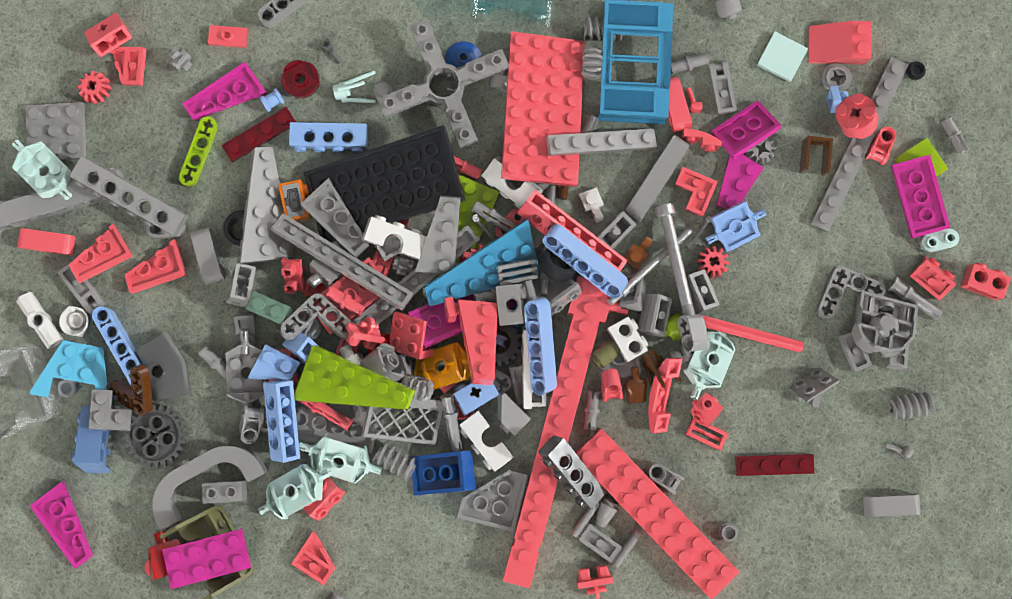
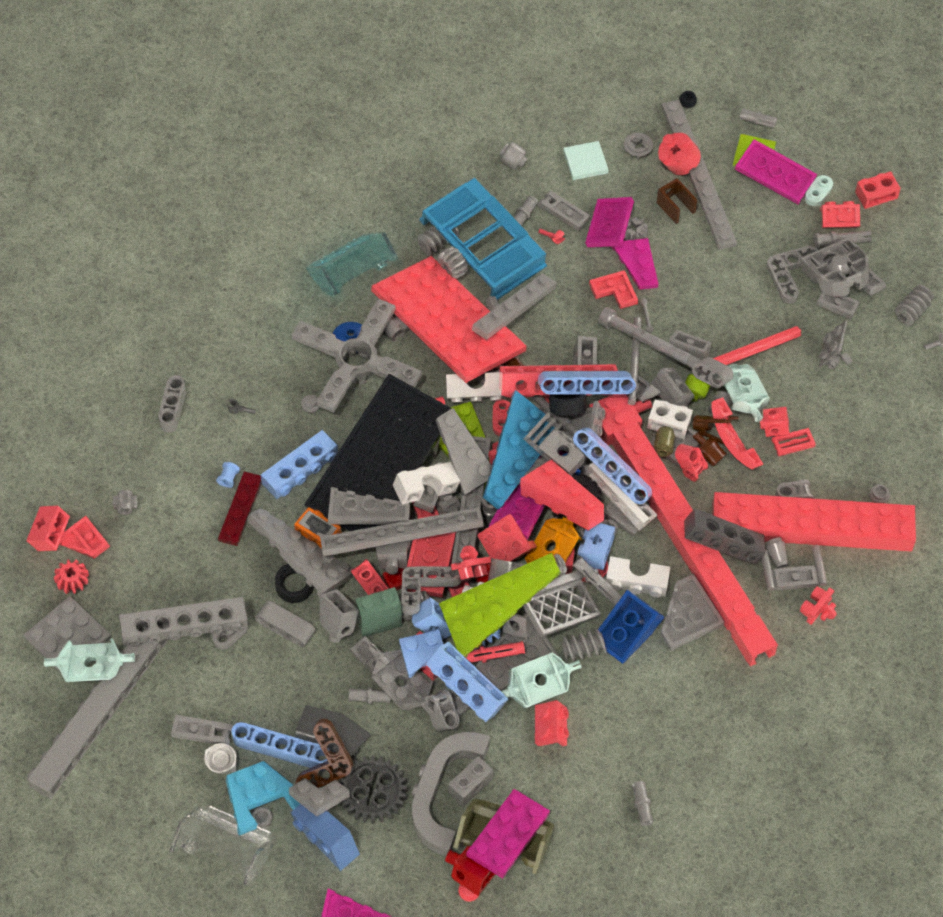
camera: 40 degrees left, 25 degrees down
(46, 241) = (138, 719): coral beam -> none
(46, 330) = (203, 784): white piece -> none
(100, 256) = (196, 690): coral wing -> none
(159, 269) = (253, 666): coral wing -> none
(194, 150) = (205, 557): lime beam -> none
(228, 36) = (146, 460): coral plate -> none
(228, 91) = (185, 497): dark pink wing -> none
(303, 68) = (232, 435): dark red plate -> none
(307, 486) = (526, 749): light aqua plate -> none
(314, 560) = (593, 774): coral wing -> none
(342, 90) = (279, 425): light aqua plant -> none
(345, 301) = (432, 557): coral pin -> none
(451, 309) = (519, 495): coral plate -> none
(475, 218) = (472, 429): light grey hinge -> none
(480, 208) = (483, 418): light grey pin -> none
(510, 415) = (636, 541): light grey slope -> none
(591, 411) = (694, 493): light grey pin -> none
(592, 202) = (547, 356): white plate -> none
(637, 255) = (620, 362): dark orange plate -> none
(657, 178) = (578, 300): light grey beam -> none
(678, 110) = (554, 249): coral beam -> none
(706, 140) = (588, 251): coral slope -> none
(708, 255) = (676, 321): coral gear -> none
(735, 226) = (668, 288): light blue plate -> none
(774, 464) = (863, 423): dark red plate -> none
(835, 97) = (651, 156): light blue tile -> none
(840, 43) = (618, 120): coral slope -> none
(880, 149) = (716, 162): coral piece -> none

